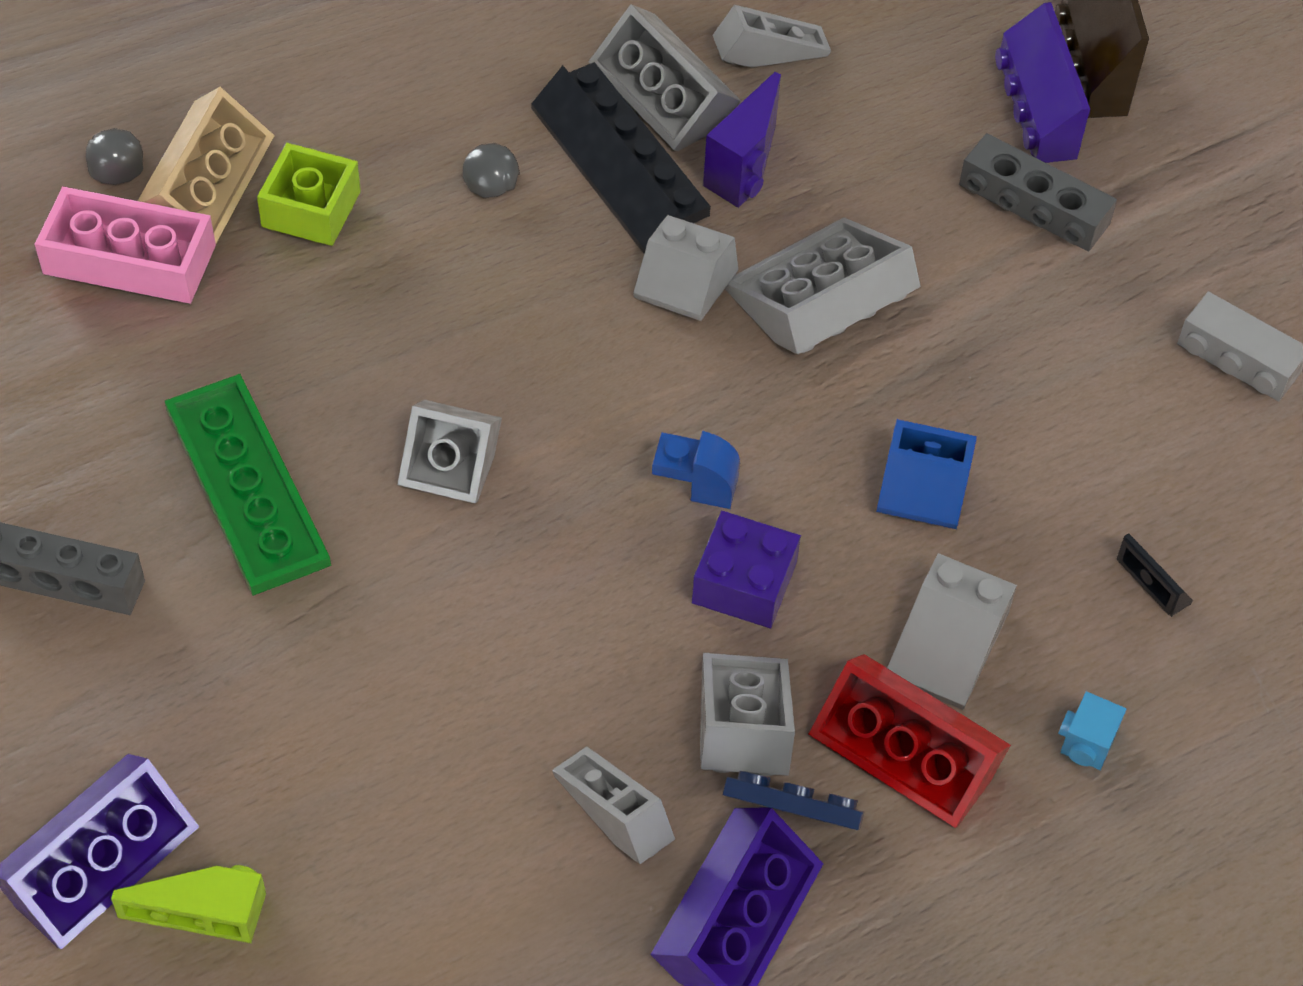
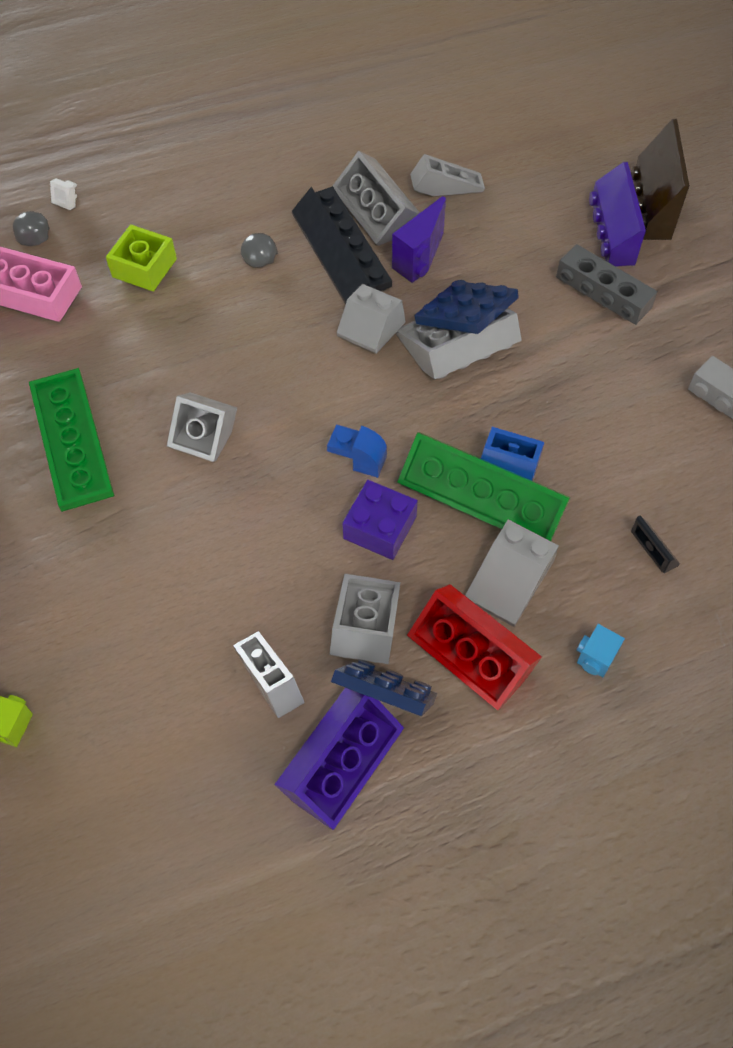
camera: 10 degrees right, 5 degrees up
(158, 96) = (63, 193): none -> white tile
(209, 160) = (86, 235): tan slope -> none
(832, 240) = (466, 306): none -> dark blue plate
(889, 510) = (481, 487): none -> green plate

